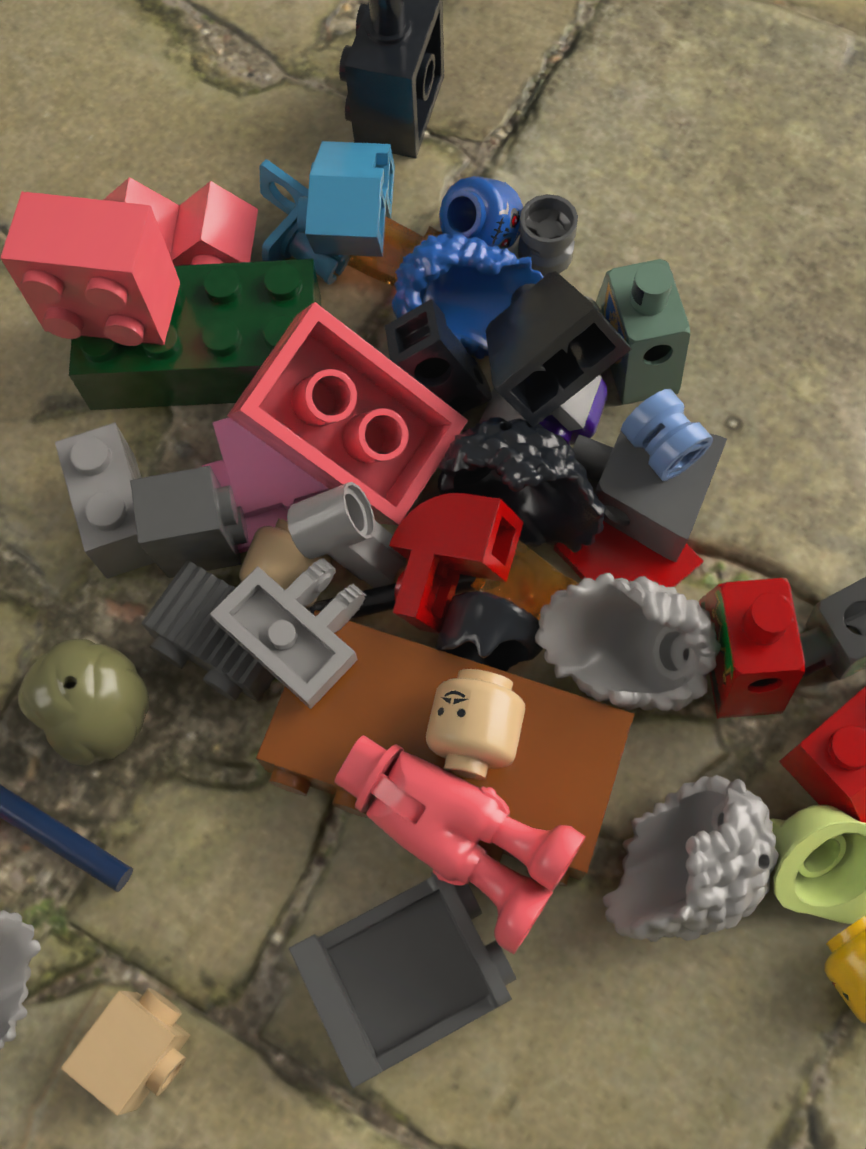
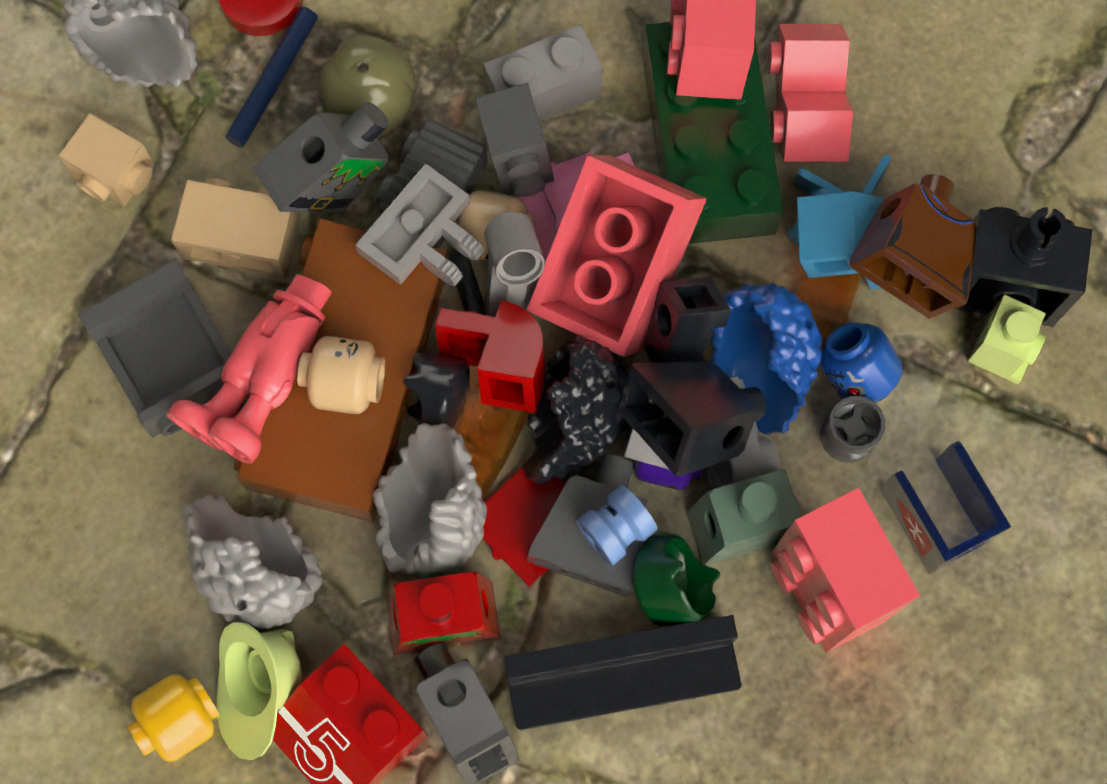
camera: 80 degrees right, 5 degrees up
(183, 739) = (325, 161): none -> dark grey torso
(245, 873) = (234, 228): none -> tan brick
(377, 123) = (920, 248): none -> reddish brown torso
(462, 79) = (1009, 339): none -> yellowish green brick
(629, 136) = (973, 497): none -> clear blue piece
(721, 401) = (672, 581): none -> dark green hair
(726, 218) = (841, 571): none -> coral brick
(798, 473) = (623, 673): none -> black panel

